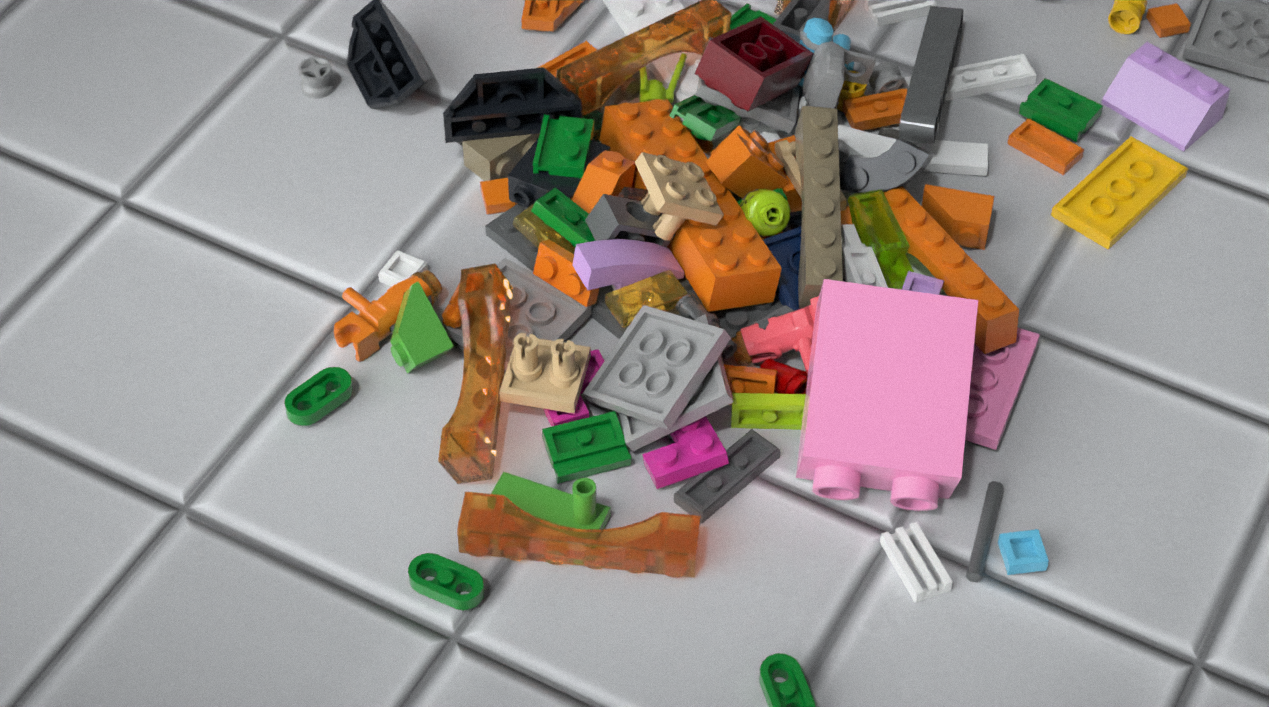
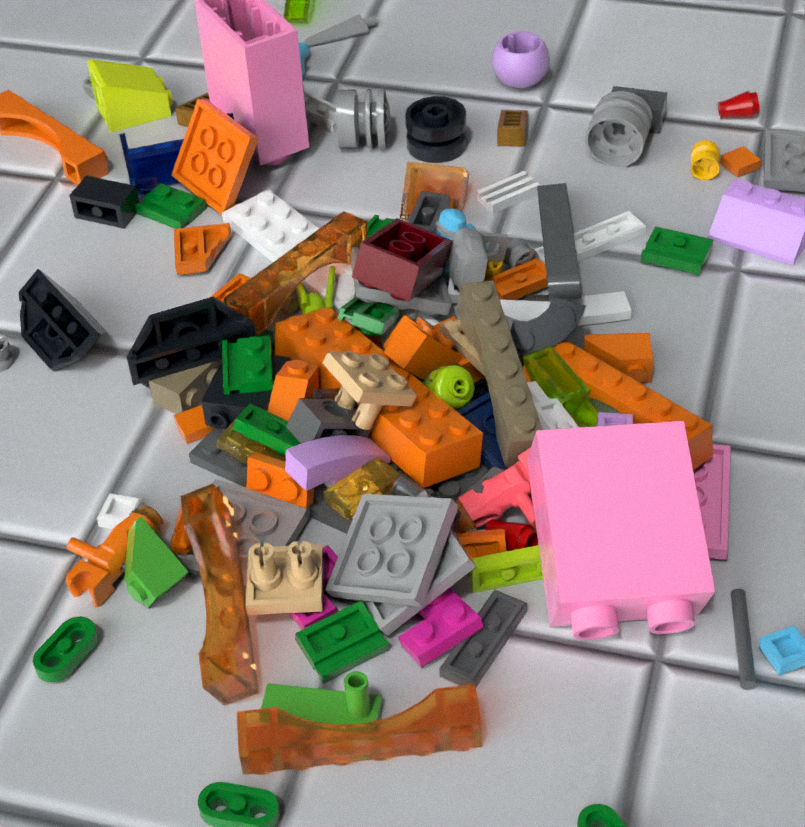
camera: 10 degrees left, 5 degrees down
(904, 537) = (694, 678): white tile -> none
(1045, 146) = (674, 284): orange tile -> none
(1119, 192) = (751, 310): yellow tile -> none

